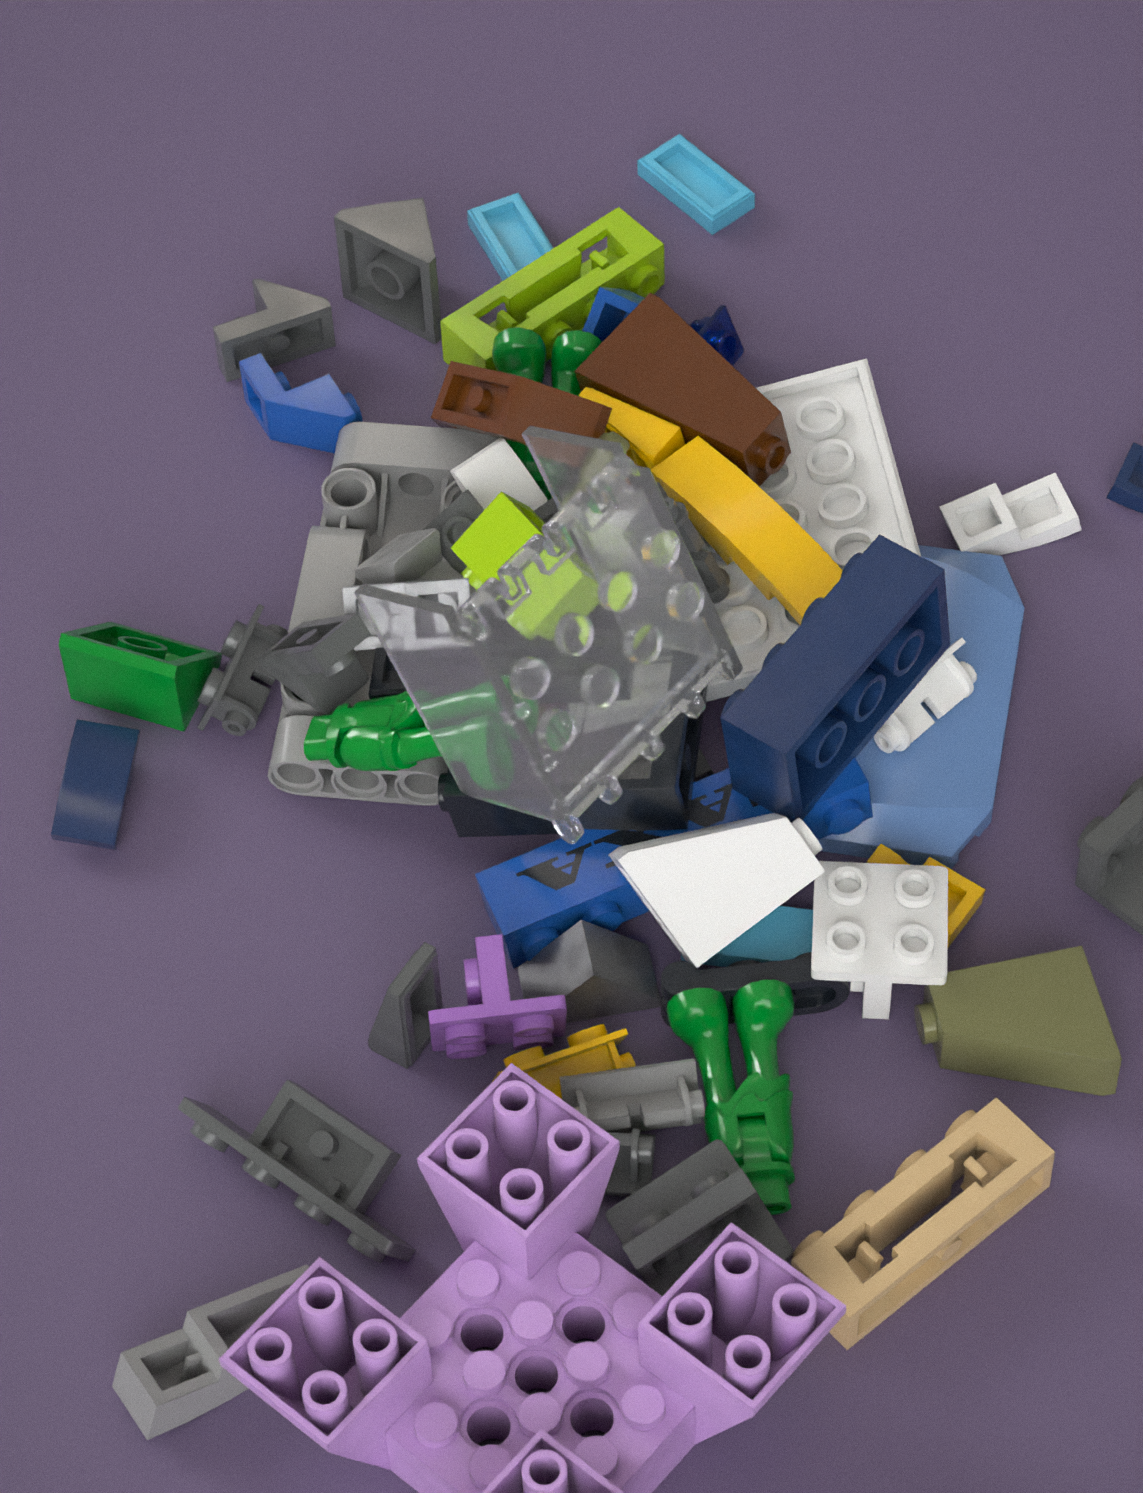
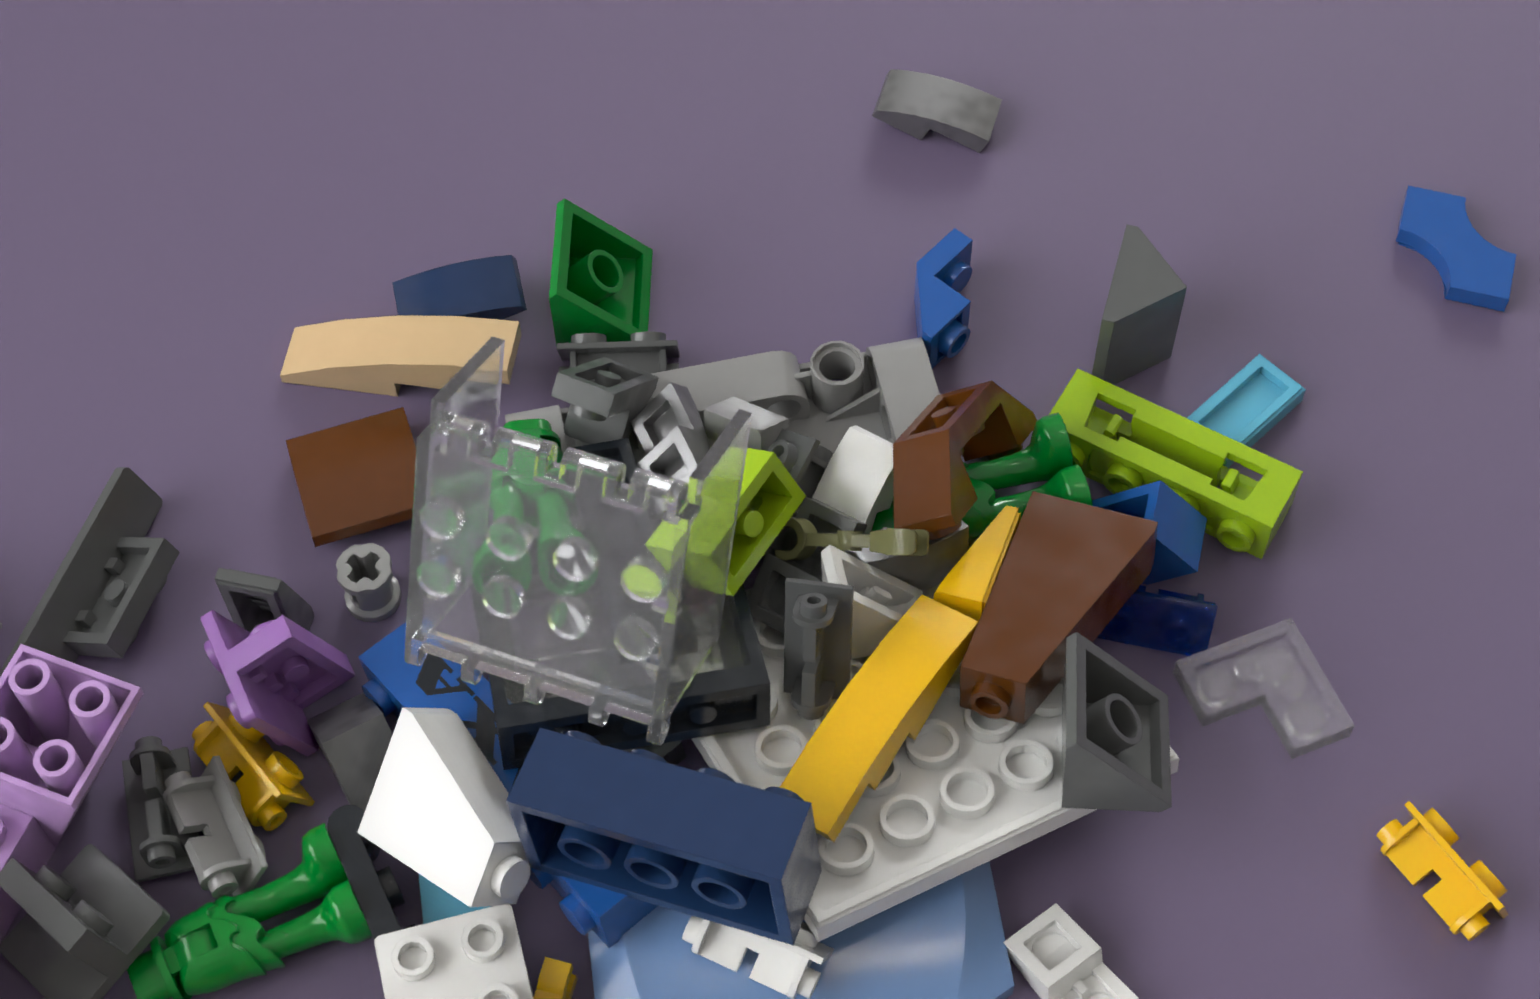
camera: 70 degrees right, 5 degrees up
(62, 351) = (926, 102): none -> flat silver slope
(141, 845) = (392, 351): none -> tan slope
(271, 916) = (355, 475): none -> reddish brown slope
(282, 329) = (1025, 254): dark grey slope -> none
(395, 55) = (1467, 263): none -> blue tile
(414, 921) = (368, 582): none -> light grey bush
(696, 184) = (1406, 544): medium azure tile -> none
(790, 299) = (1272, 671): none -> clear plate
(837, 390) = (1112, 734): none -> dark grey slope
(979, 257) = (1464, 890): none -> yellow hinge

